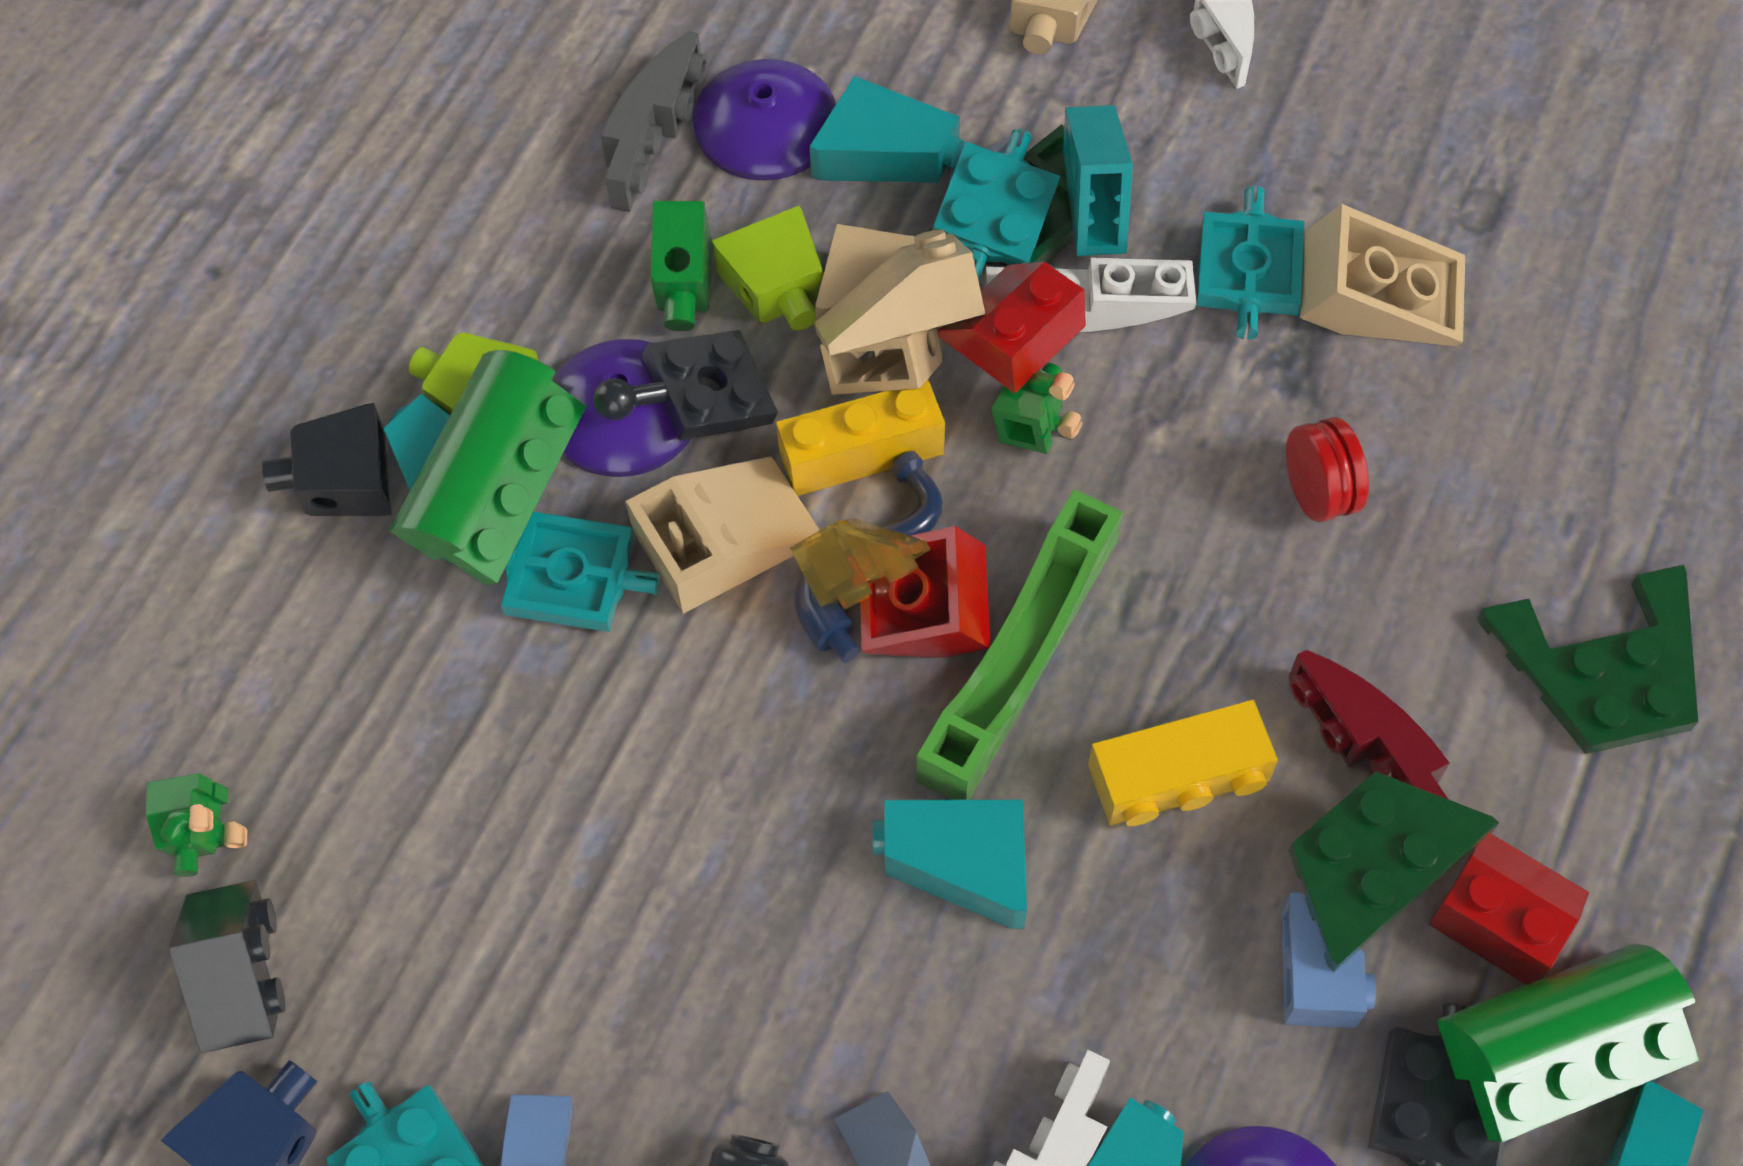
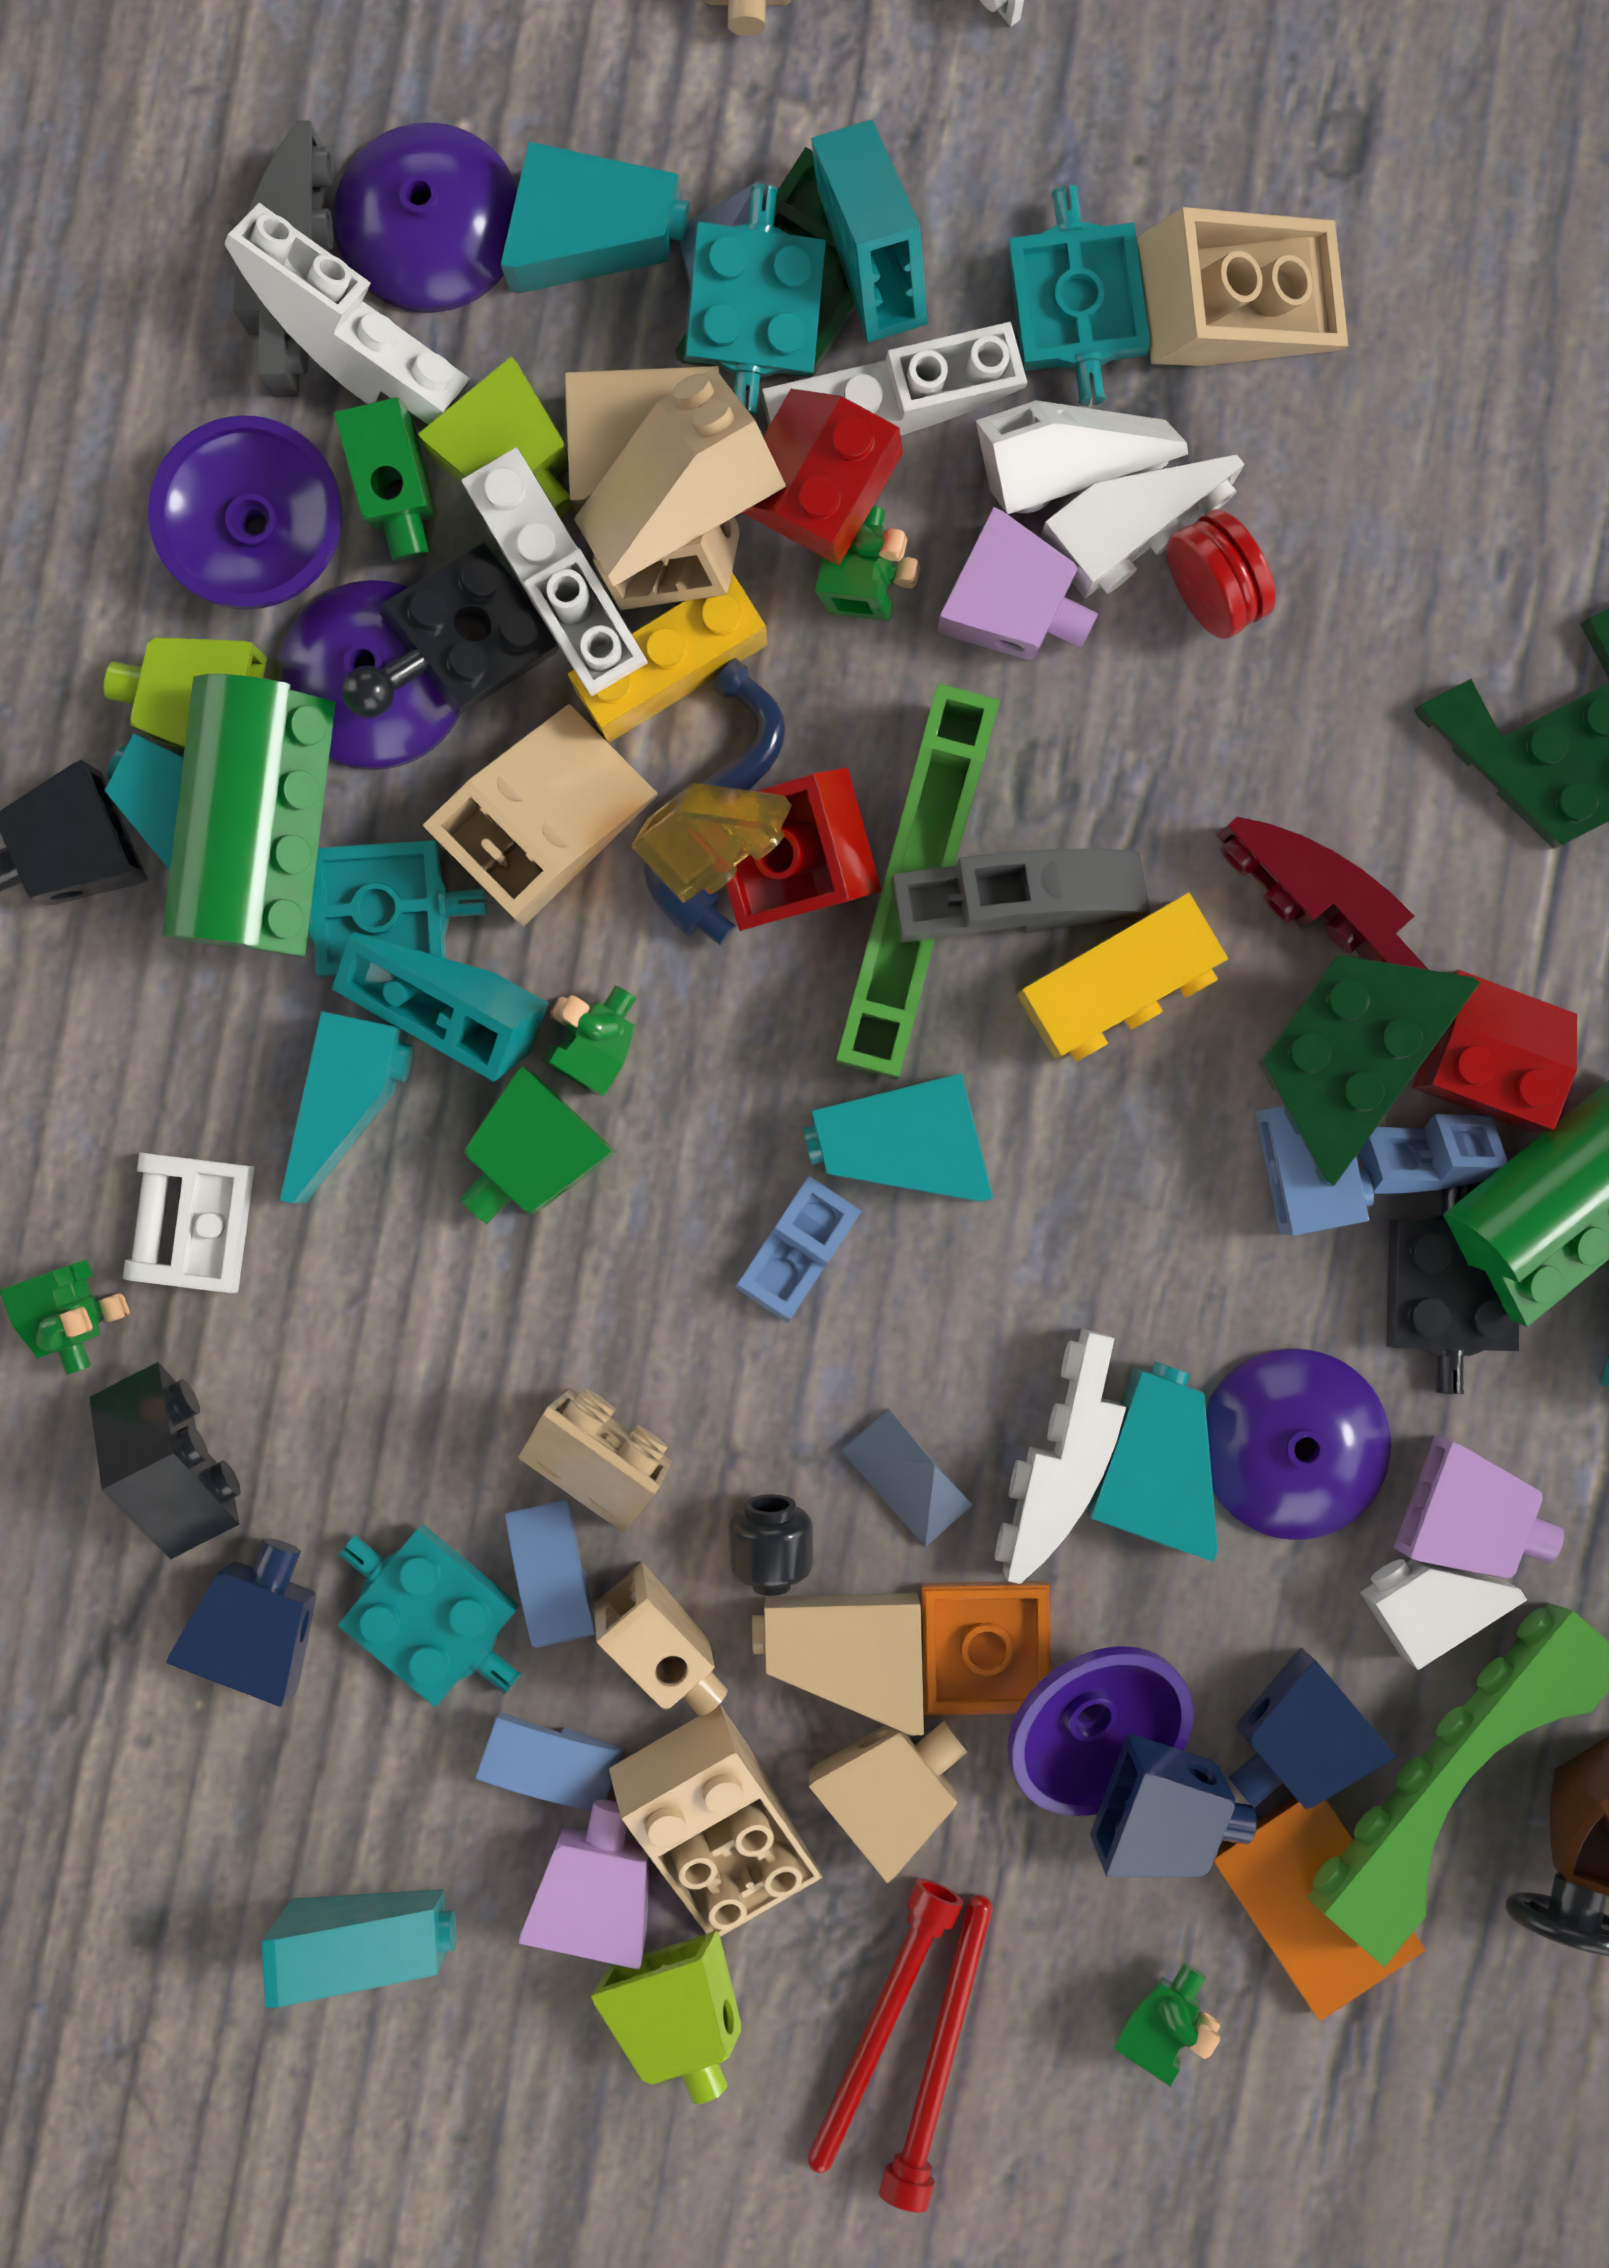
camera: 15 degrees left, 25 degrees up
(339, 784) = (208, 1223): none -> white plate
(490, 705) = (346, 1087): none -> teal slope
(558, 247) = (222, 481): none -> dark purple dish
(598, 646) = (443, 1003): none -> teal slope
(607, 1048) = (597, 1457): none -> tan slope
(635, 784) = (530, 1150): none -> green torso
(669, 147) = (325, 314): none -> white slope
(713, 706) = (595, 1039): none -> green piece
(787, 347) = (554, 572): none -> white slope
(842, 928) = (798, 1249): none -> medium blue slope
(1110, 663) = (1020, 890): none -> dark grey slope
(1152, 453) = (1014, 593): none -> lavender torso
(1205, 356) = (1065, 449): none -> white slope
(1255, 418) = (1131, 514): none -> white slope
(1447, 982) = (1442, 1155): none -> medium blue slope

